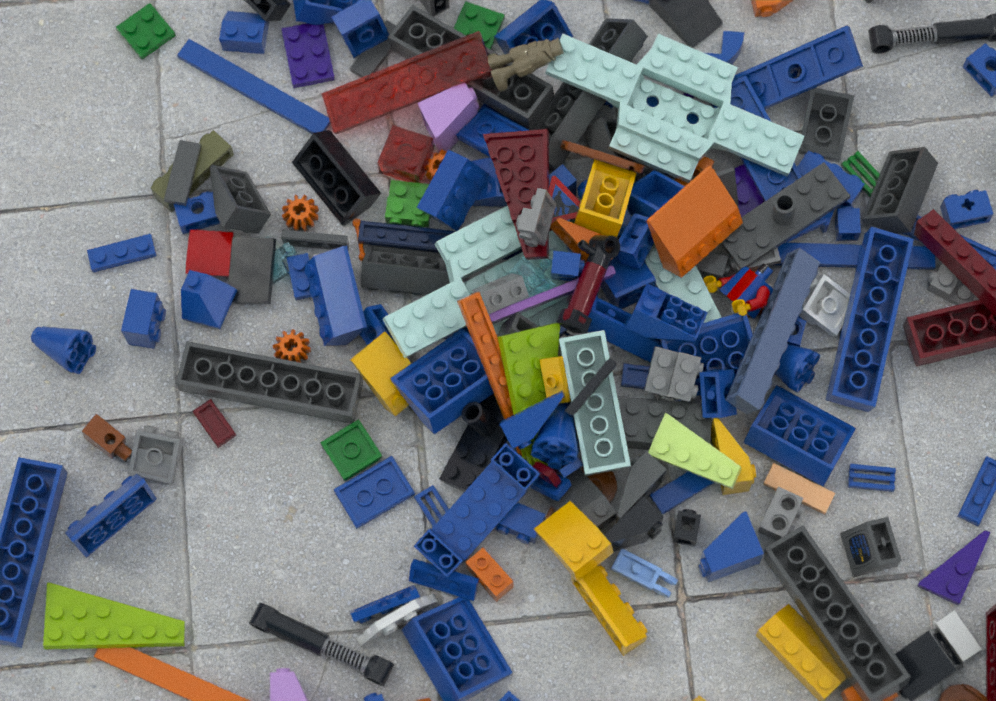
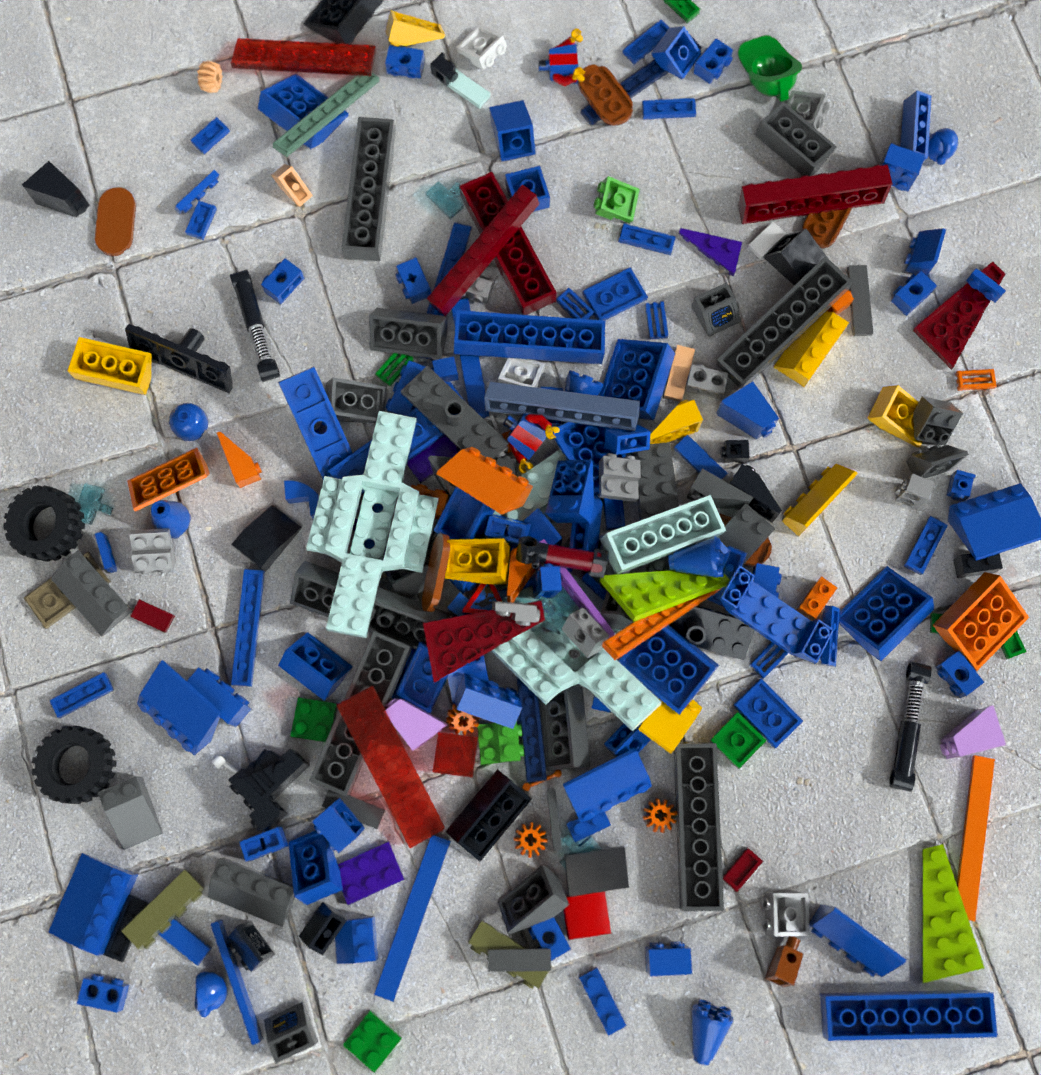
camera: 105 degrees left, 5 degrees up
(205, 299) = (634, 905): blue slope -> none
(384, 604) = (863, 677): blue wing -> none
(389, 623) = (875, 665): white wing -> none
(525, 60) = (359, 654): dark tan piece -> none
(526, 423) = (698, 581): blue slope -> none
(547, 473) = (729, 564): dark red tile -> none
(555, 377) = (655, 568): yellow plate -> none
(574, 540) = (783, 529): yellow slope -> none
(590, 388) = (660, 534): black tile -> none
(642, 572) = (781, 479): light blue hinge -> none
(688, 451) = (681, 458): yellowish green wing -> none
(891, 397) = (590, 312): none -> blue tile
(913, 436) = (615, 294): none -> blue tile

